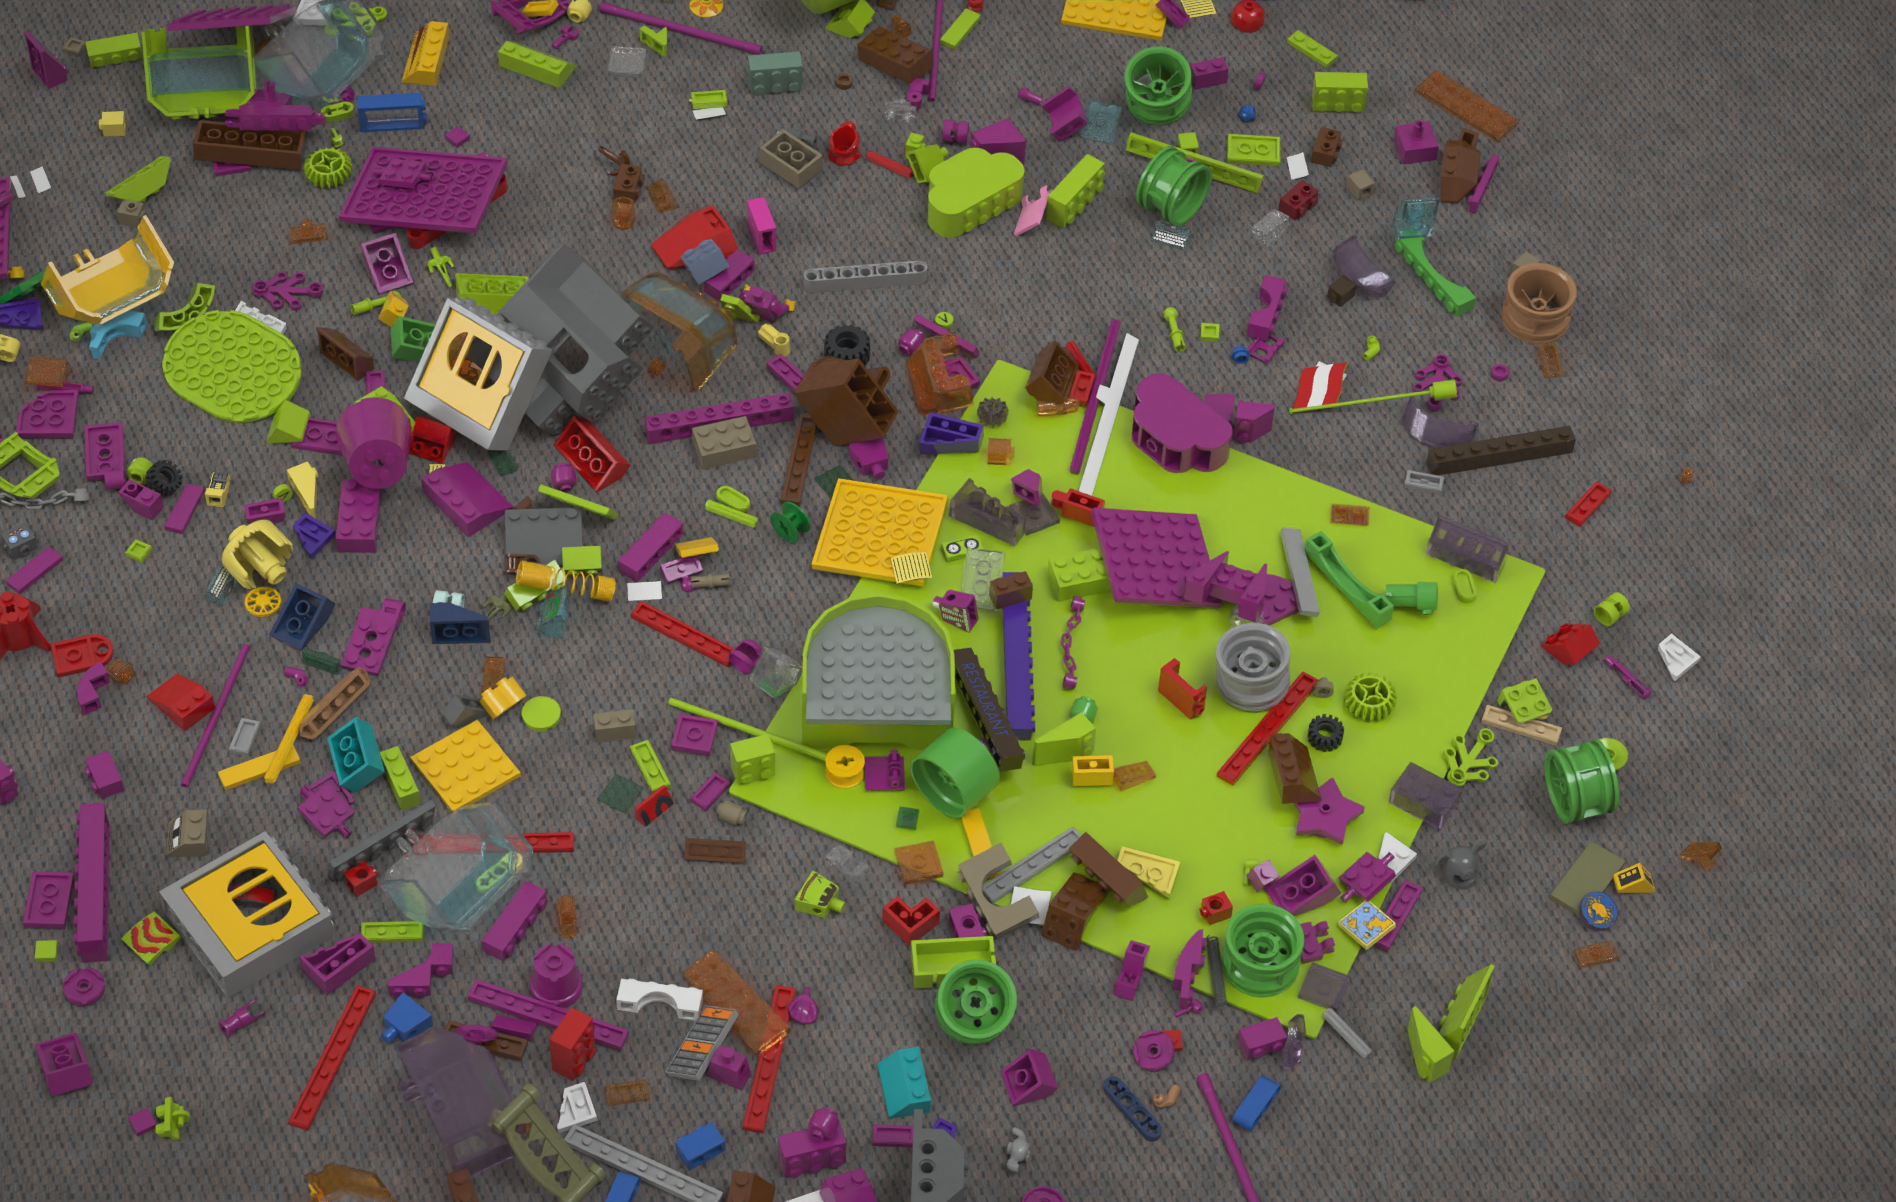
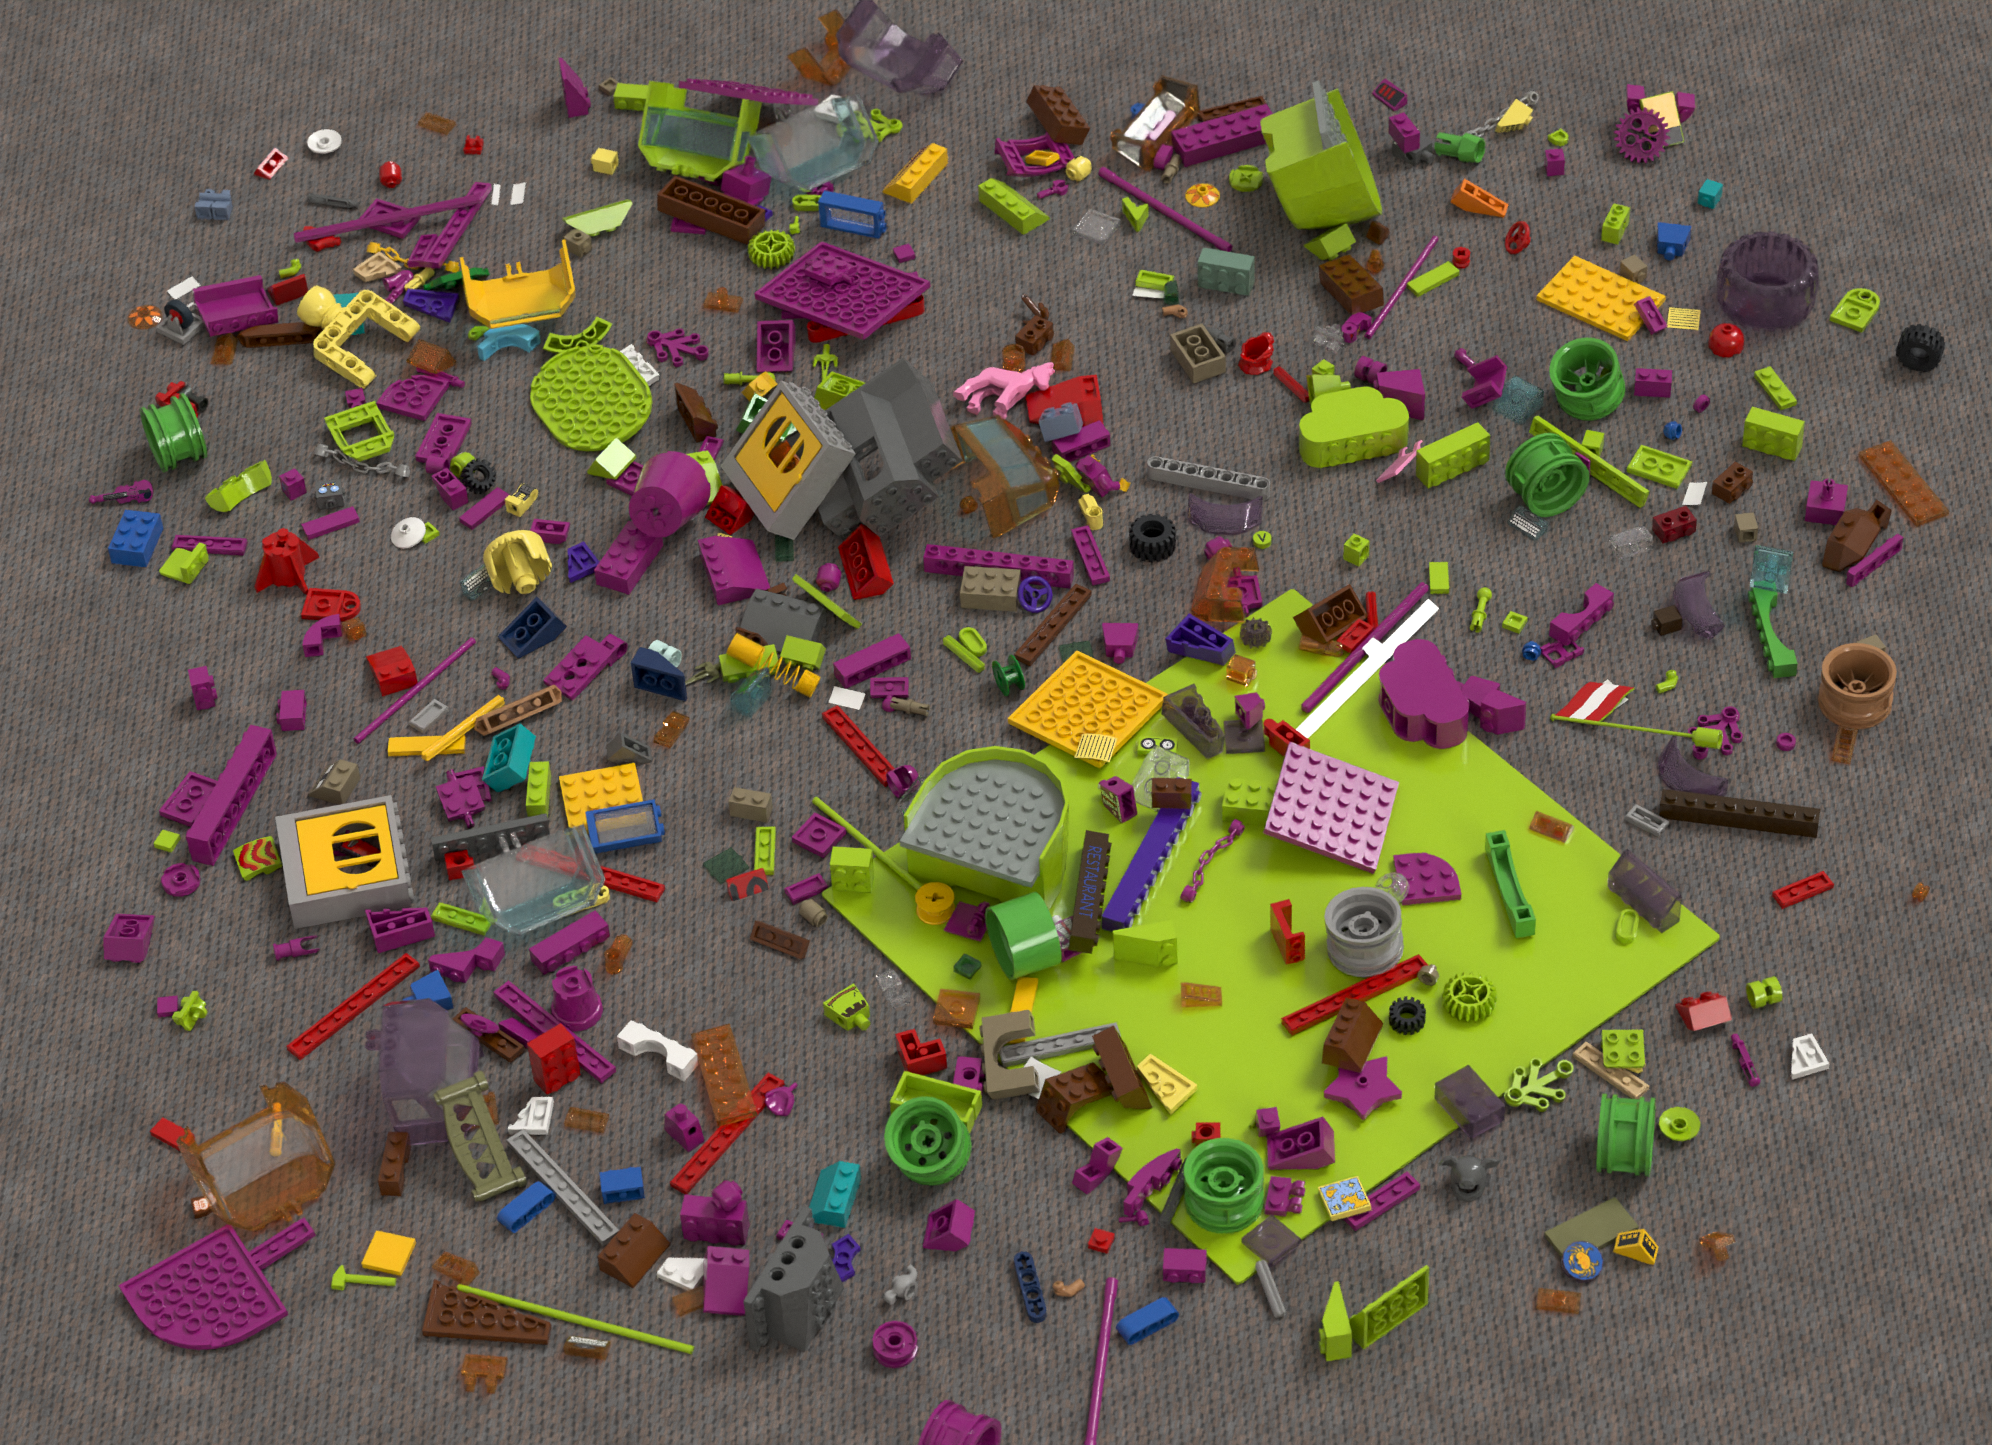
camera: 30 degrees right, 5 degrees down
(125, 561) = (408, 533): none -> white dish
(262, 602) = (507, 606): yellow wheel -> none
(274, 117) = (740, 190): magenta hinge -> none
(282, 491) = (575, 518): lime tile -> none
(305, 485) = (597, 519): light yellow slope -> none
(321, 661) = (527, 671): clear green plate -> none
(501, 698) = (665, 750): yellow brick -> none
(508, 783) = (625, 826): none -> window
(541, 714) = (694, 775): lime tile -> none
(630, 239) = (1007, 384): none -> bright pink animal
(696, 547) = (911, 672): yellow tile -> none
(702, 1043) = (678, 1092): tile -> none
(732, 107) = (1171, 293): none -> clear green brick
(744, 122) = (1176, 310): none -> medium nougat arm
(761, 225) = (1133, 405): dark pink brick -> none
(766, 437) = (1028, 594): none -> dark purple piece
(843, 81) = (1292, 298): reddish brown tile -> none
(847, 399) = (1113, 578): reddish brown piece -> none
(898, 311) = (1225, 518): none -> clear purple windscreen
(937, 330) = (1261, 560): magenta tile -> none
(1036, 305) = (1356, 550): none -> lime brick
(1086, 706) = (1185, 923): bright green head -> none
(1092, 770) = (1160, 978): yellow brick -> none
(1121, 310) = (1439, 577): none -> lime tile
(1154, 1040) = (1076, 1234): magenta plate -> none
(1229, 584) = (1384, 849): magenta wedge -> none
(1292, 1048) = (1217, 1271): tile -> none
(1299, 572) = (1466, 863): light grey tile -> none
(1367, 876) = (1368, 1155): magenta plate -> none
(1403, 855) = (1407, 1149): white wing -> none
(1420, 595) = (1572, 919): bright green piece -> none

